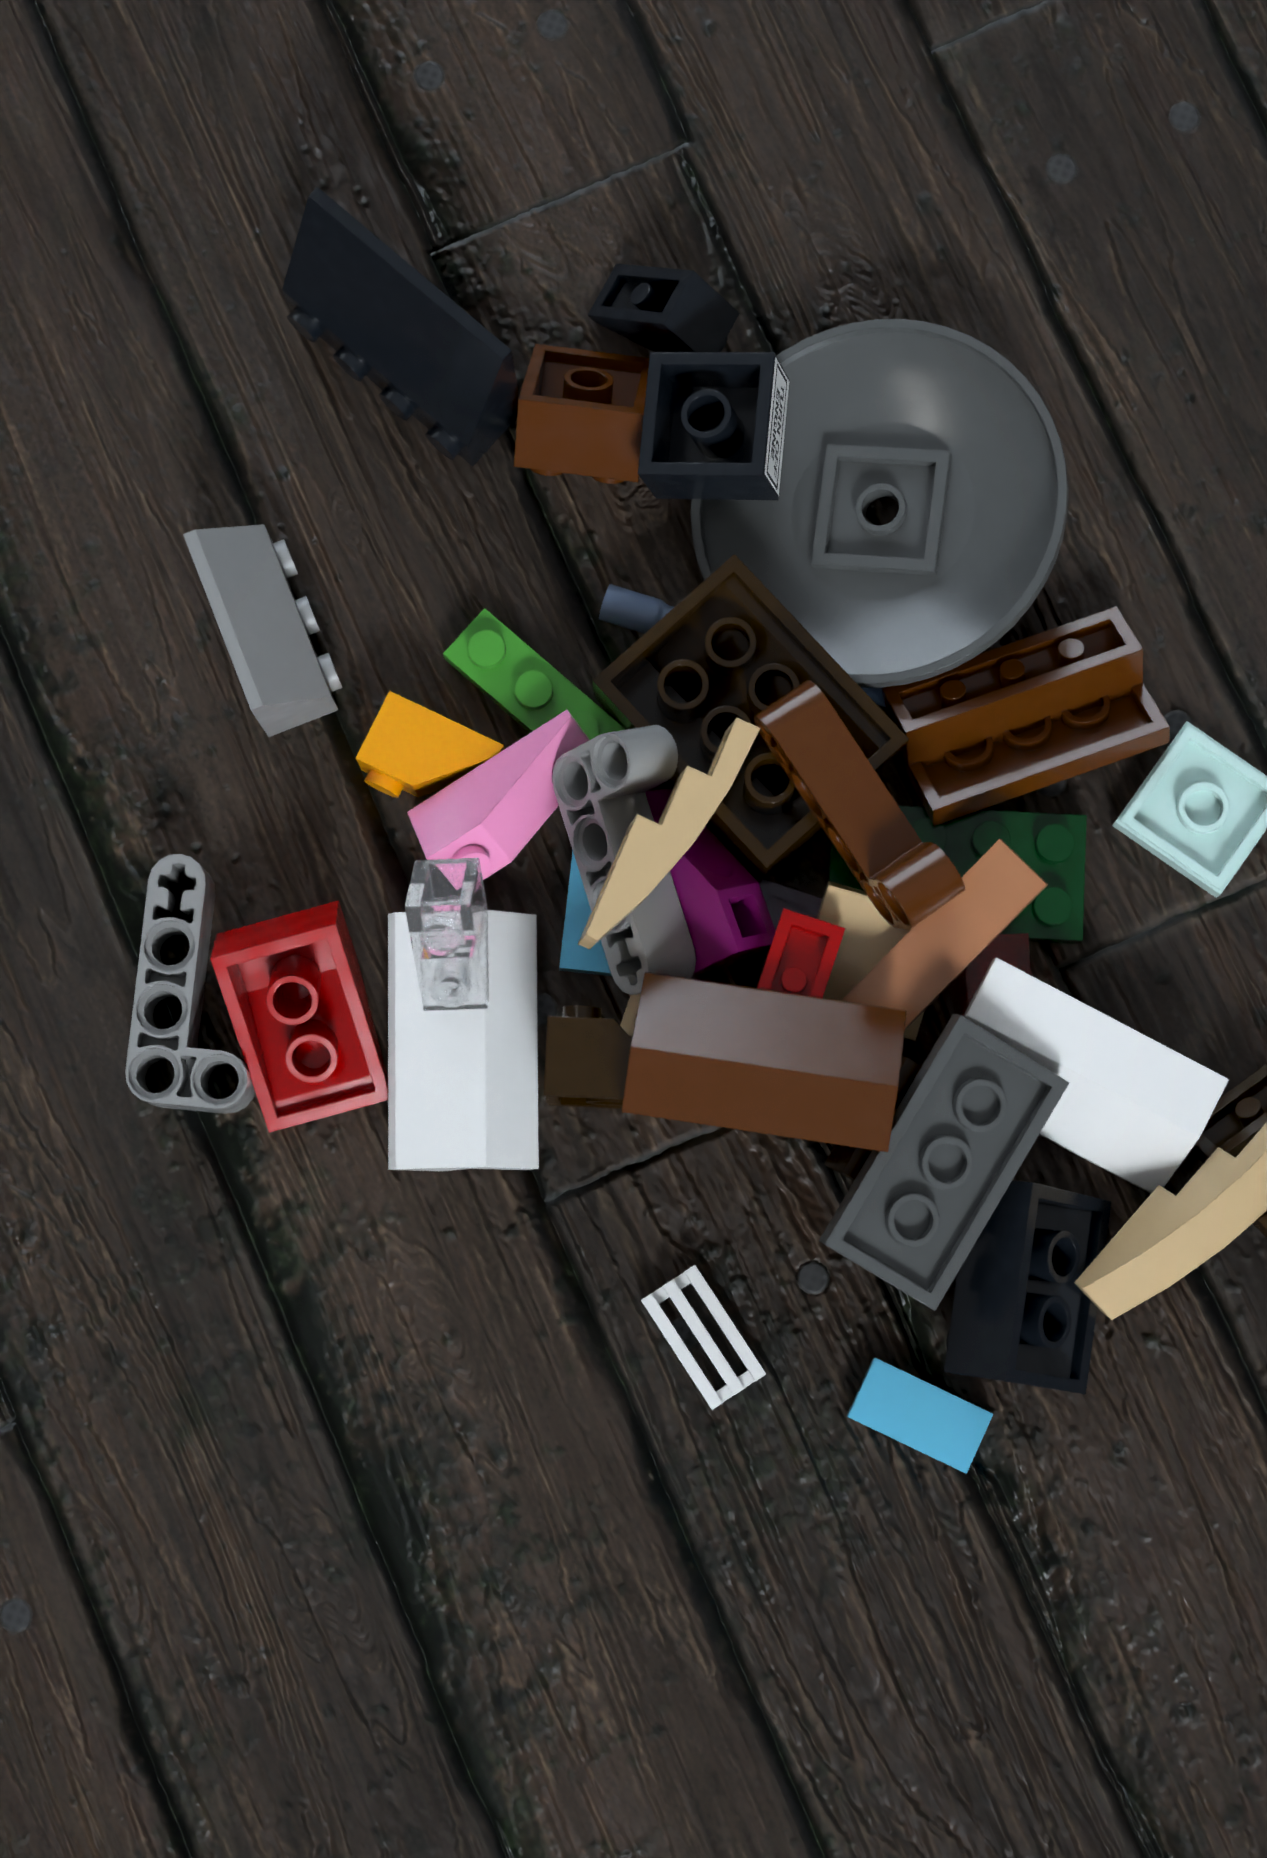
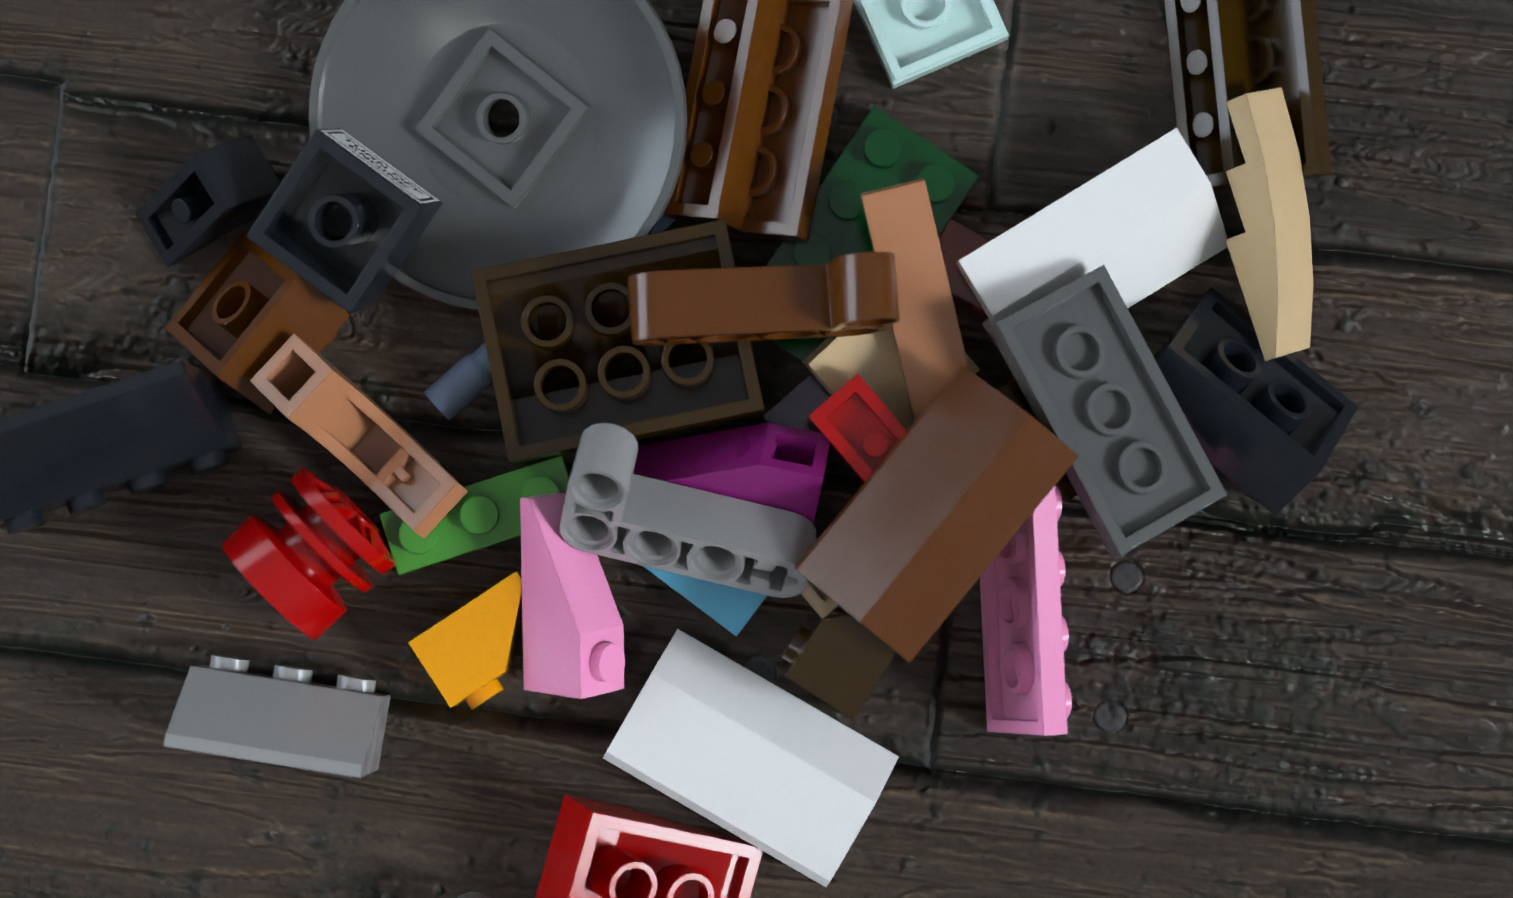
camera: 65 degrees left, 5 degrees up
(416, 565) = (309, 553): none -> red wheel
(449, 933) = (657, 716): clear slope -> none
(542, 546) = (359, 434): none -> nougat arch
(654, 848) = (698, 501): tan slope -> none
(718, 1201) = (1026, 629): none -> bright pink plate
(733, 1383) = (1178, 698): white tile -> none
(919, 1415) = (1295, 557): medium azure tile -> none

